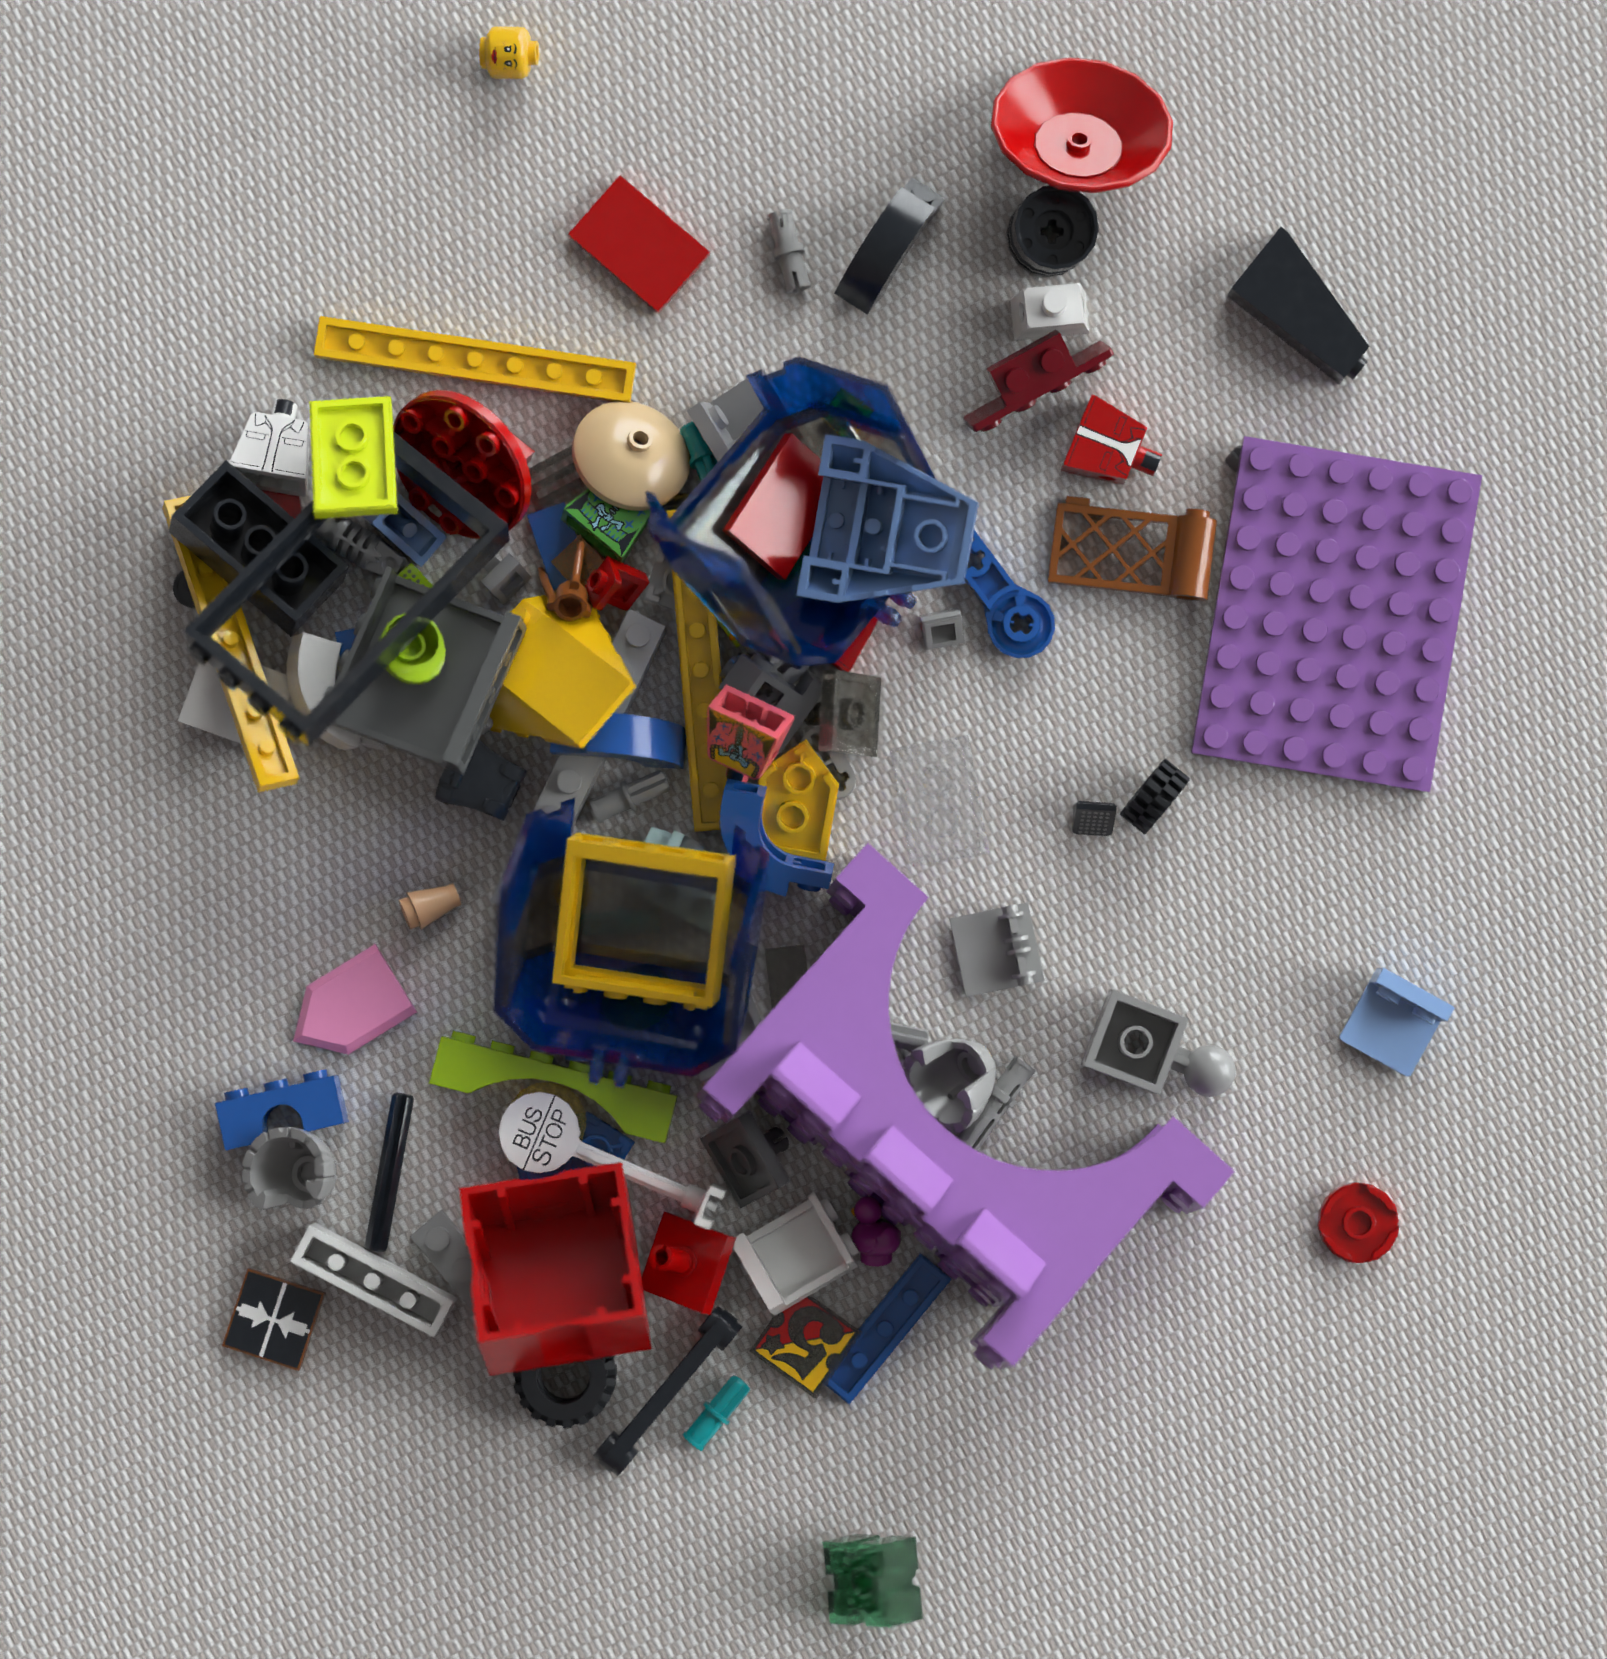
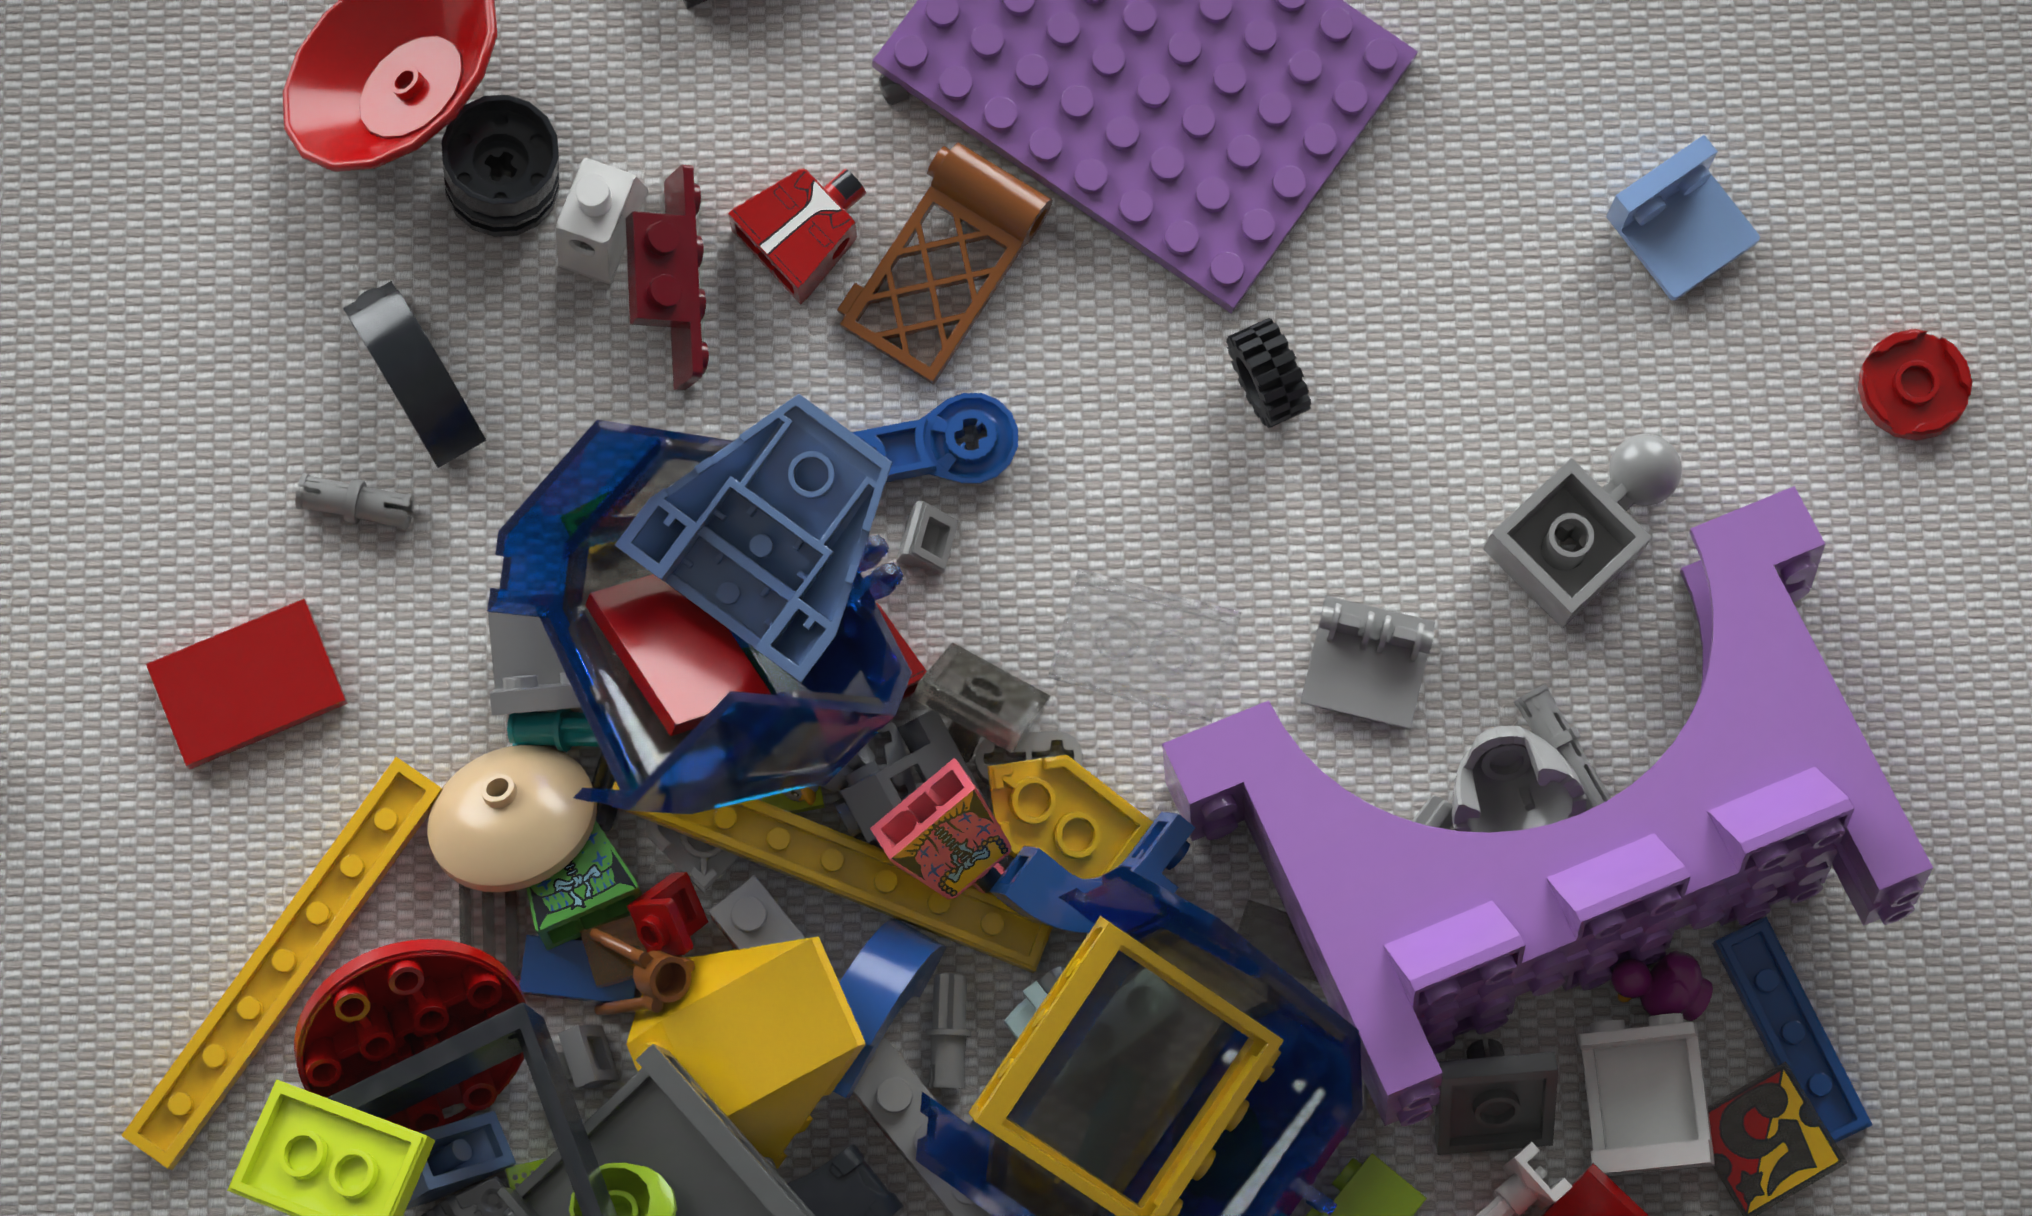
camera: 65 degrees left, 10 degrees down
(1093, 818) = (1257, 464): black slope -> none

